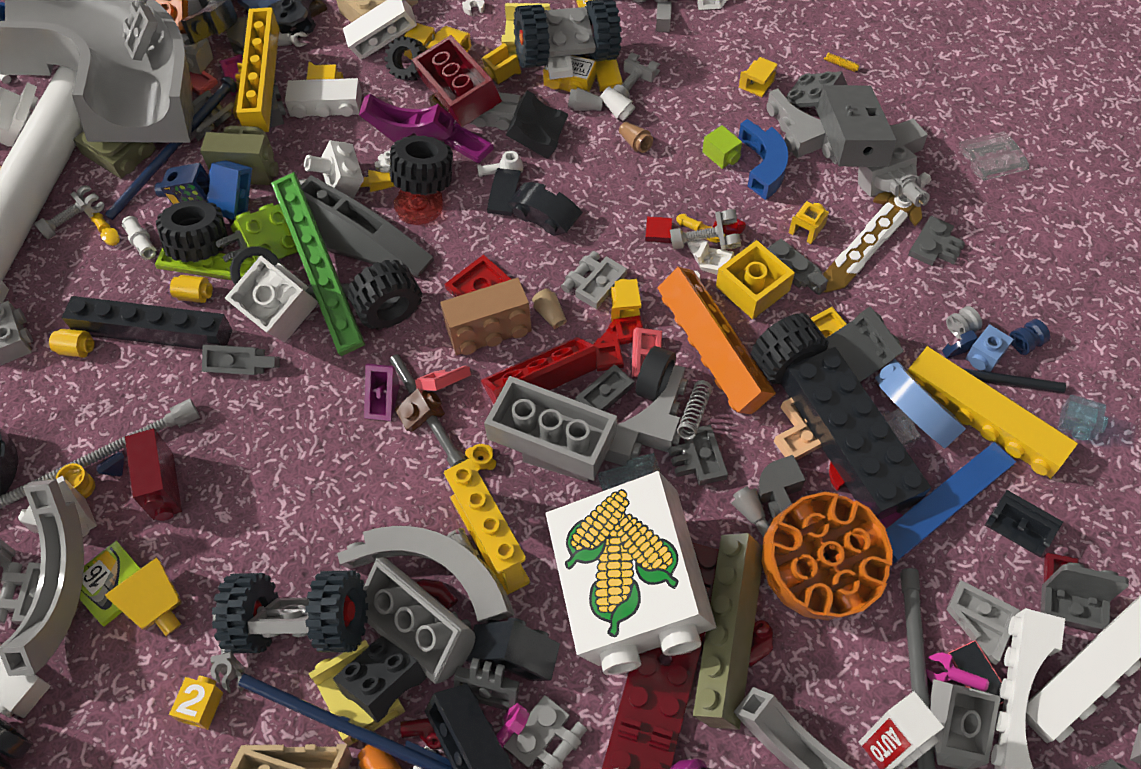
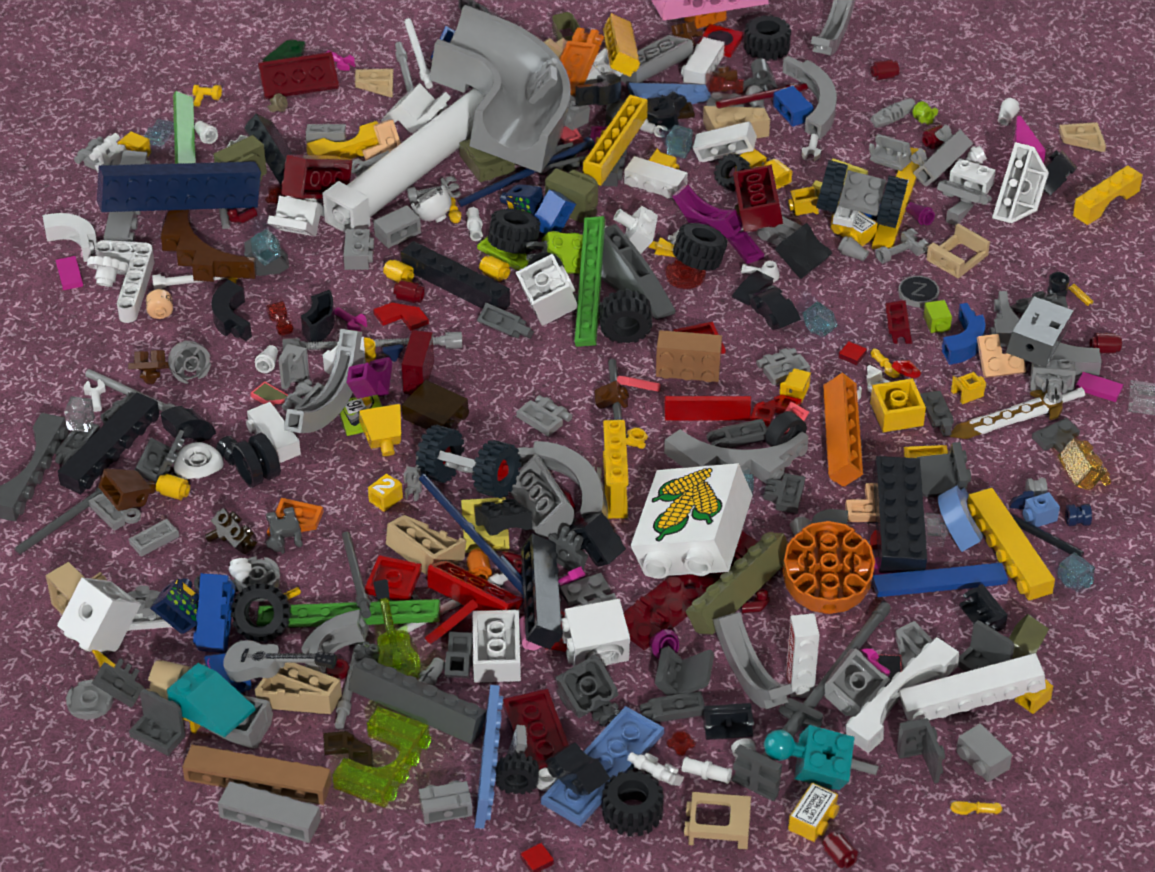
camera: 25 degrees right, 15 degrees down
(38, 437) = (351, 325): none -> dark pink bar
(44, 276) = (397, 226): none -> light grey brick
(76, 234) = (433, 205): none -> white cylinder
(89, 402) = (410, 315): none -> red tile
(94, 542) = (370, 378): none -> magenta arch
(97, 366) = (409, 291): none -> dark red brick
(206, 531) = (434, 406): none -> dark brown brick
(328, 44) = (679, 141): none -> clear light blue brick
(350, 482) = (540, 418): none -> light grey plate
(380, 391) = (591, 374): magenta slope -> none
(549, 308) = (739, 370): tan cone -> none
(551, 427) = (690, 428): light grey brick -> none
(603, 203) = (819, 319): none -> clear light blue brick
(617, 103) = (876, 259): white cone -> none
(632, 32) = (922, 214): none -> magenta cone
(636, 137) = (877, 288): medium nougat cone -> none
(680, 123) = (918, 290): none -> black tile
(684, 424) = (800, 458): light grey piece -> none
(688, 75) = (951, 263): none -> tan window
(688, 169) = (898, 321): none -> dark red hinge
(725, 217) = (860, 362): light grey bar -> none
(758, 76) = (1002, 279): yellow window -> none
(786, 344) = (888, 441): black tyre -> none
(813, 176) = (994, 362): none -> light nougat plate
(817, 59) = (1058, 283): none -> black wheel
(907, 108) = (1106, 342): none -> dark red brick
(938, 162) = (1099, 386): none -> dark pink tile
(993, 269) = (1083, 464): none -> clear yellow brick
(1113, 544) = (1027, 636): none -> olive piece

